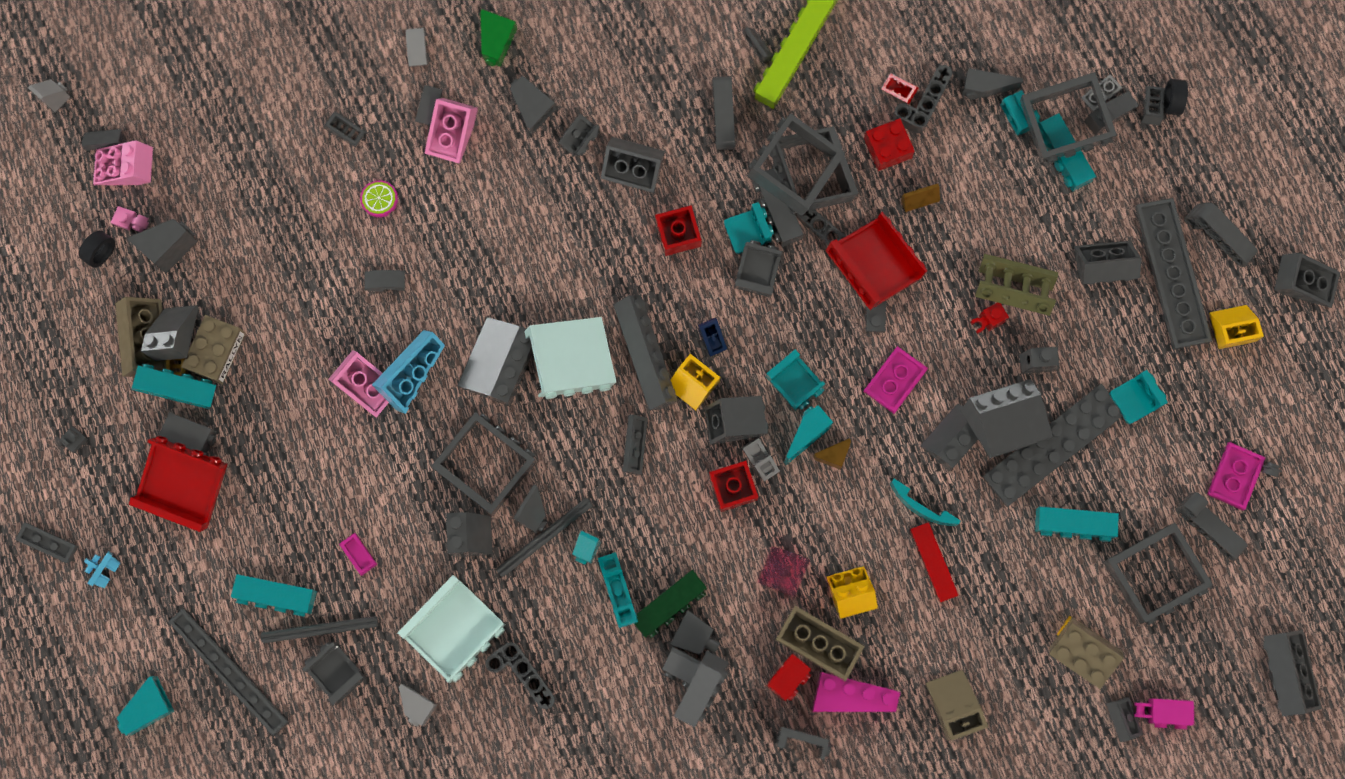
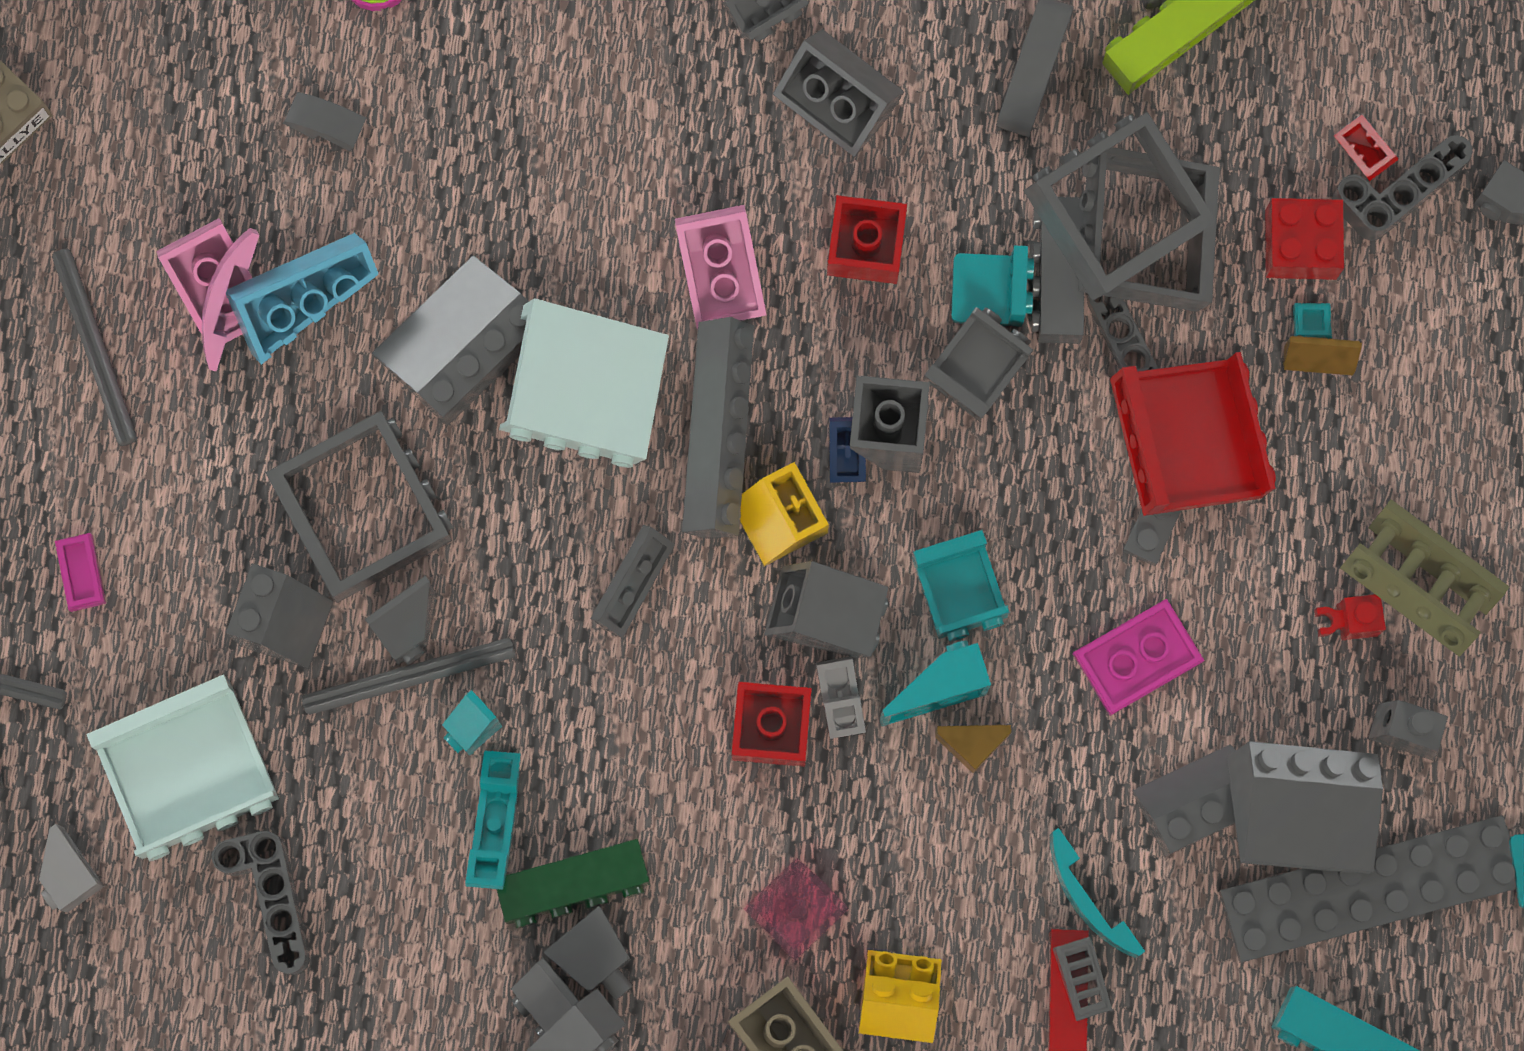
camera: 20 degrees right, 0 degrees up
(317, 440) = (94, 347): none -> dark grey axle
(372, 363) = (240, 255): none -> bright pink slope
(611, 272) = (720, 265): none -> bright pink slope
(730, 314) = (890, 422): none -> dark grey slope
(909, 182) = (1312, 320): none -> teal tile
(926, 545) = (1092, 961): none -> dark grey slope

